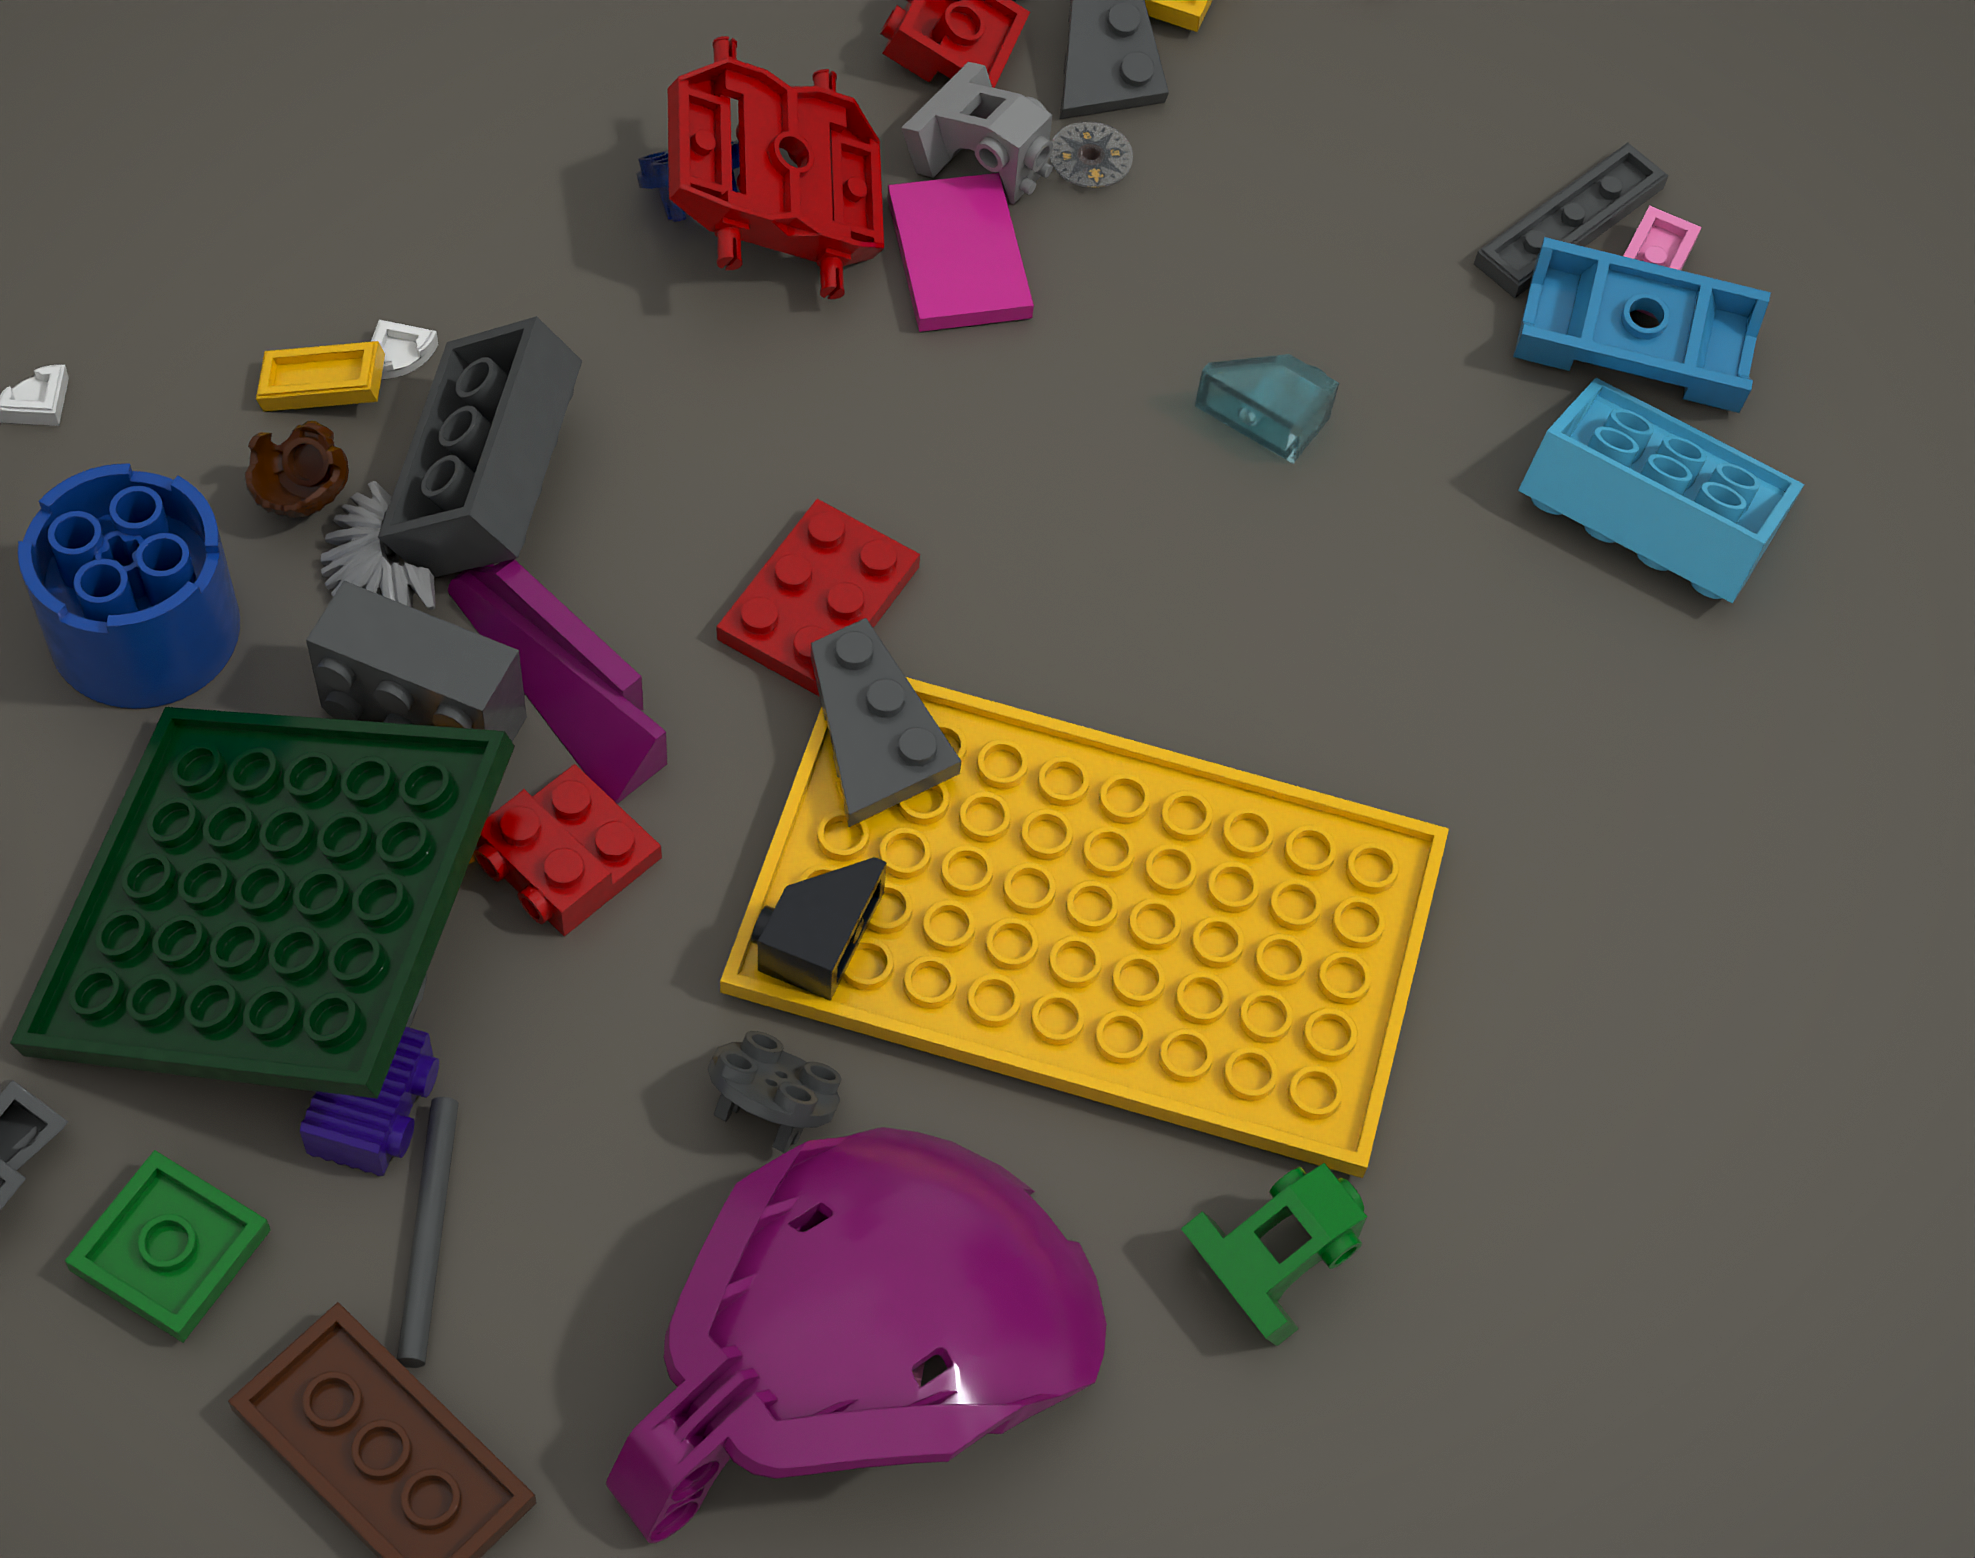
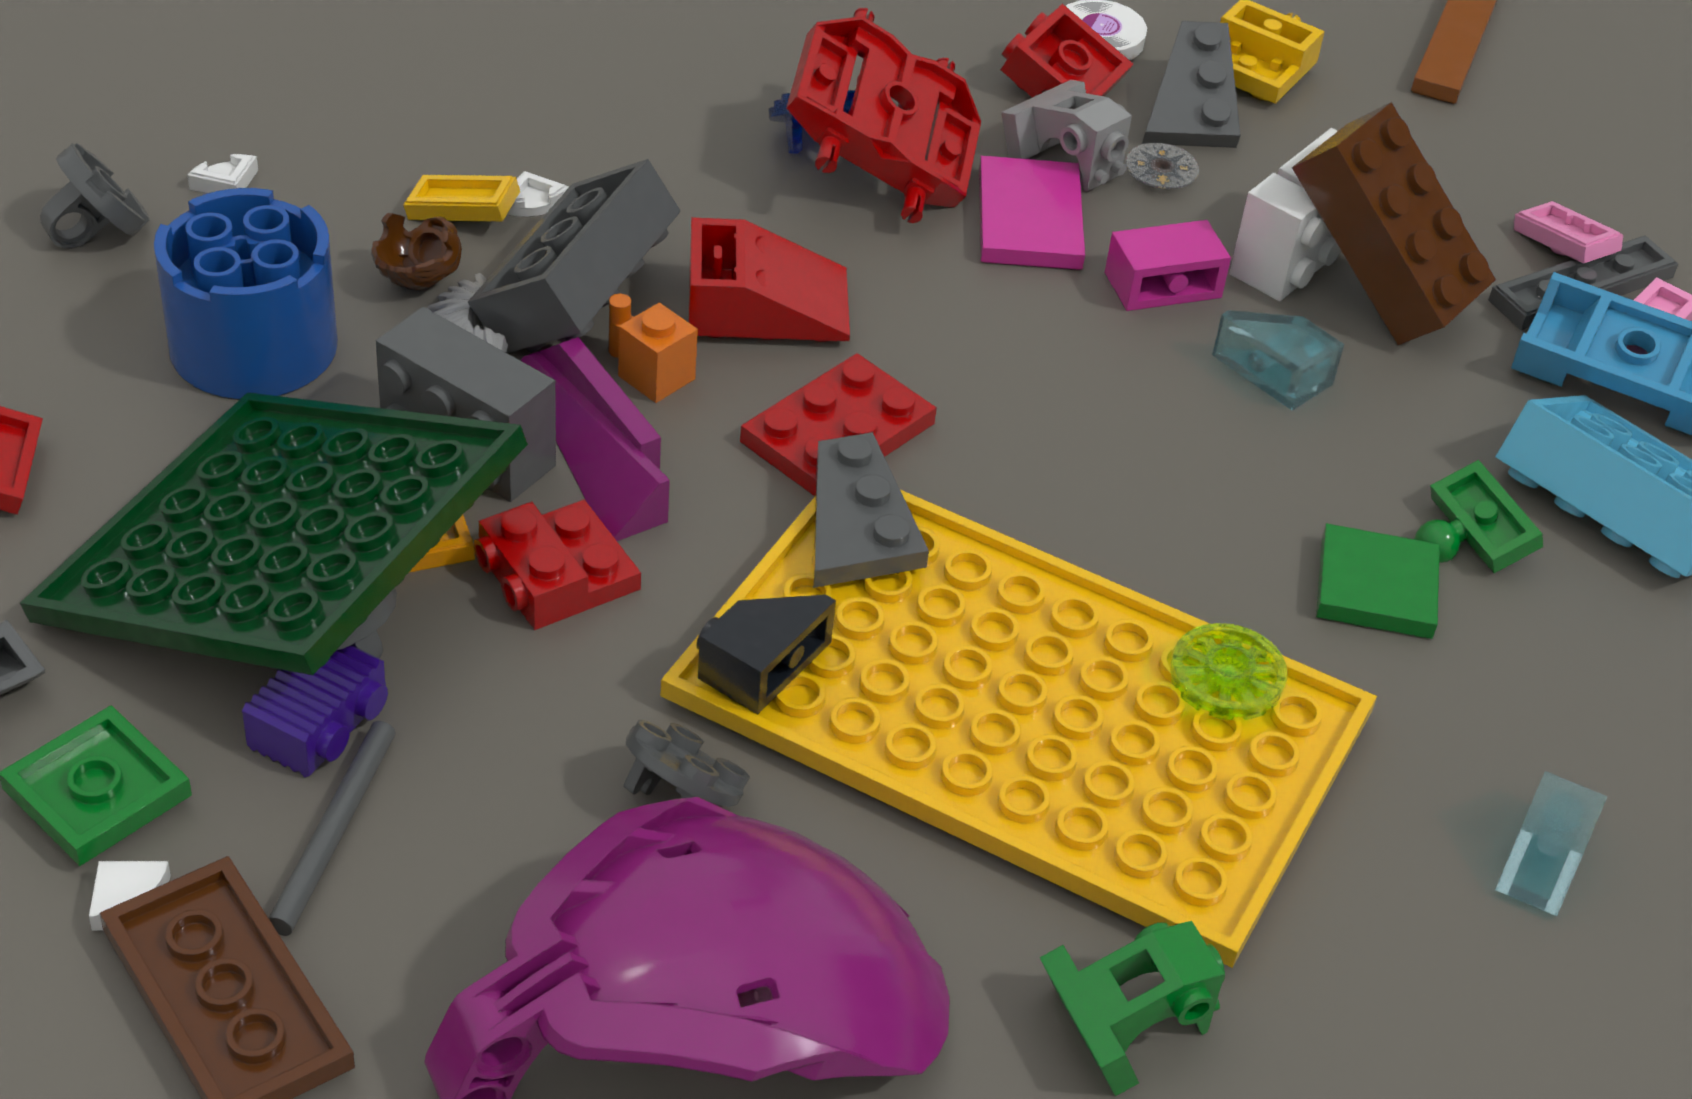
camera: 15 degrees right, 15 degrees down
(239, 1356) = (122, 881): none -> white tile
(597, 548) = (652, 348): none -> orange brick
(694, 432) = (762, 285): none -> red slope
(1125, 301) = (1167, 265): none -> dark pink brick
(1258, 227) = (1282, 233): none -> white piece
(1296, 836) = (1228, 670): none -> clear neon green wheel
(1368, 217) = (1394, 224): none -> reddish brown brick
(1423, 673) = (1378, 581): none -> green tile
(1514, 570) = (1482, 516): none -> green plate
(1546, 158) = (1568, 232): none -> bright pink plate
(1647, 960) = (1551, 842): none -> clear light blue slope

